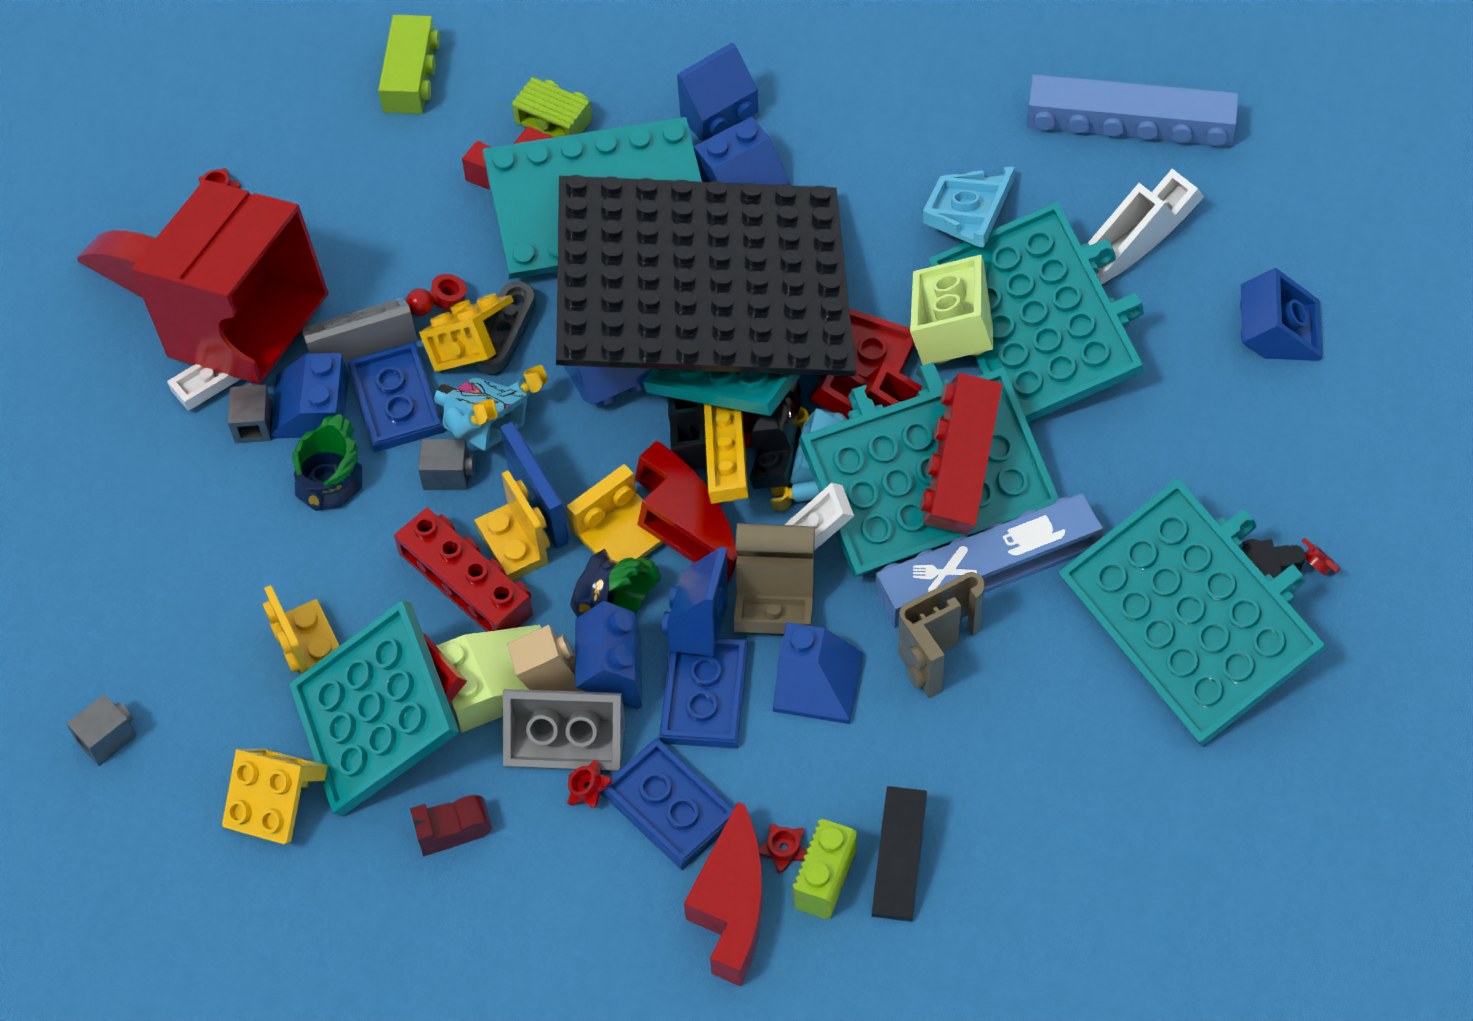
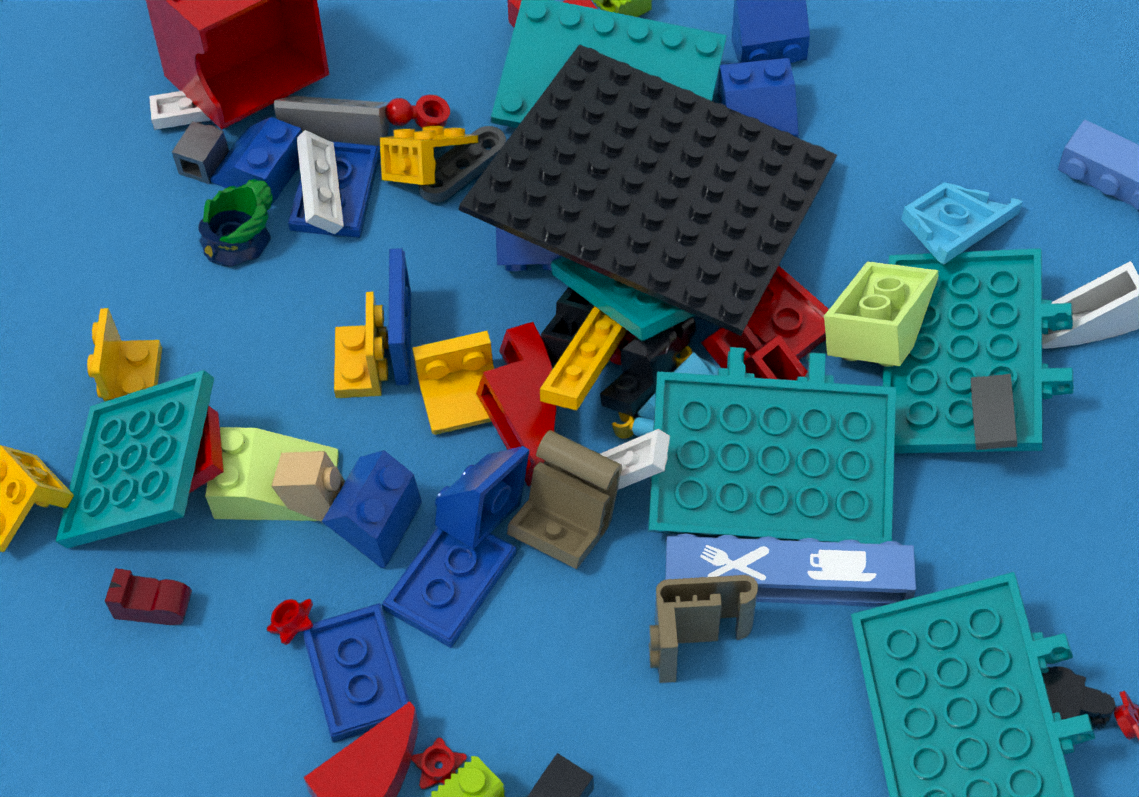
camera: 25 degrees right, 0 degrees up
(386, 395) = (319, 182): none -> white plate
(445, 464) = (338, 265): flat silver brick -> none
(463, 572) = (295, 371): red brick -> none
(481, 407) = (401, 224): medium azure torso -> none
(562, 729) = (297, 557): light grey slope -> none
(615, 582) = (417, 441): piece -> none
(816, 674) = (560, 610): blue slope -> none
(961, 453) = (806, 454): red brick -> none
(1092, 355) = (993, 412): none -> dark grey slope

